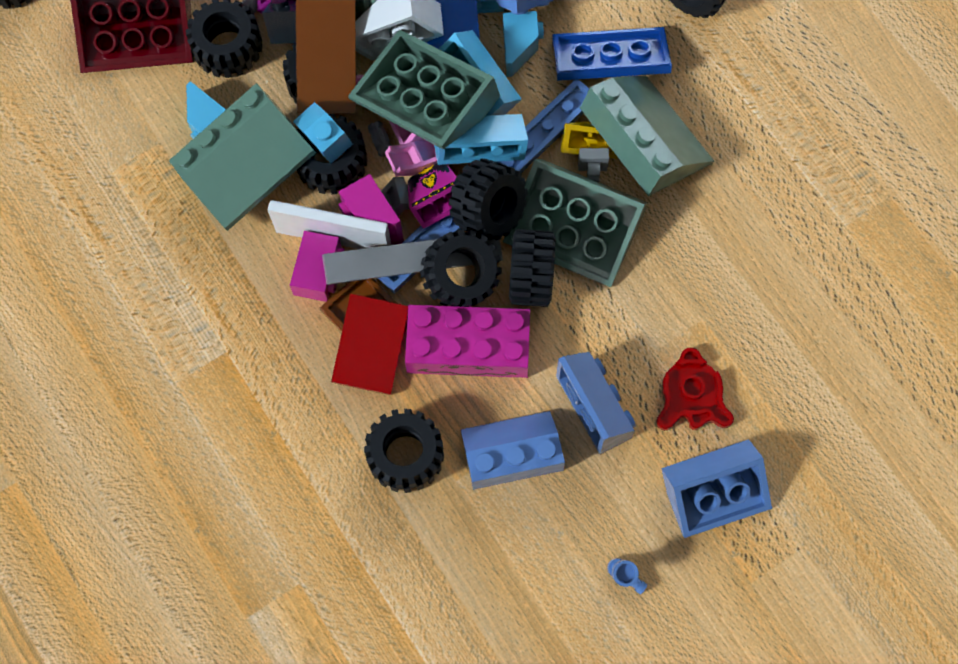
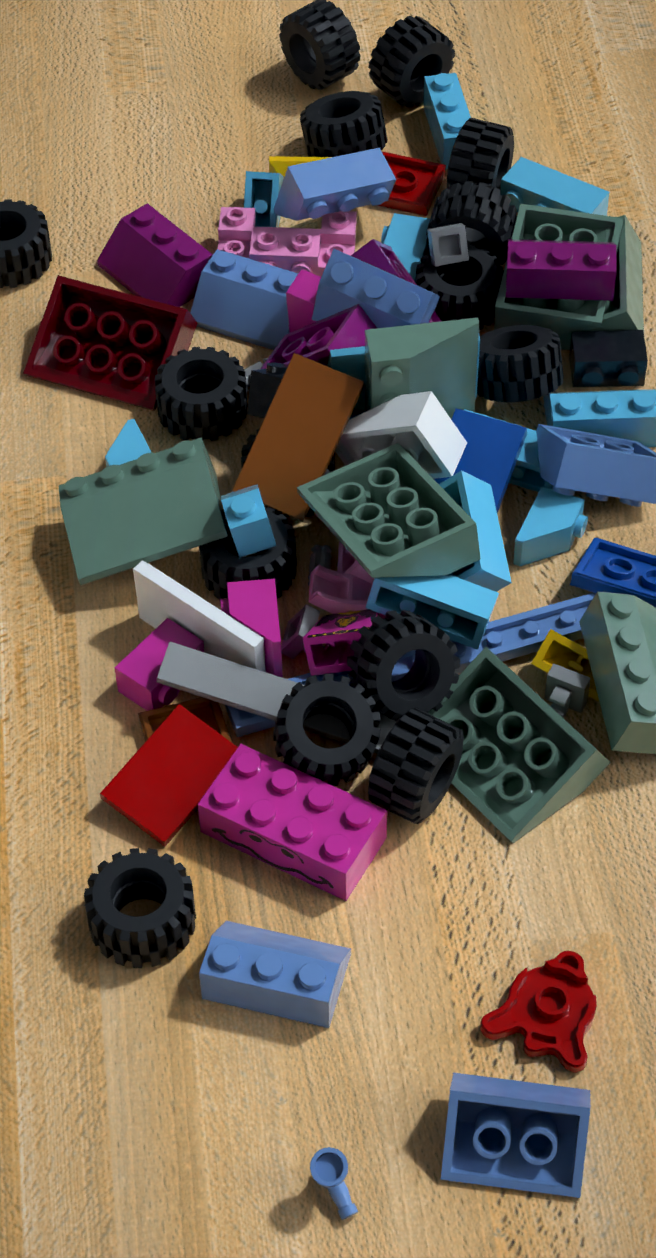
camera: 25 degrees right, 20 degrees down
(595, 400) = (413, 955): medium blue slope -> none

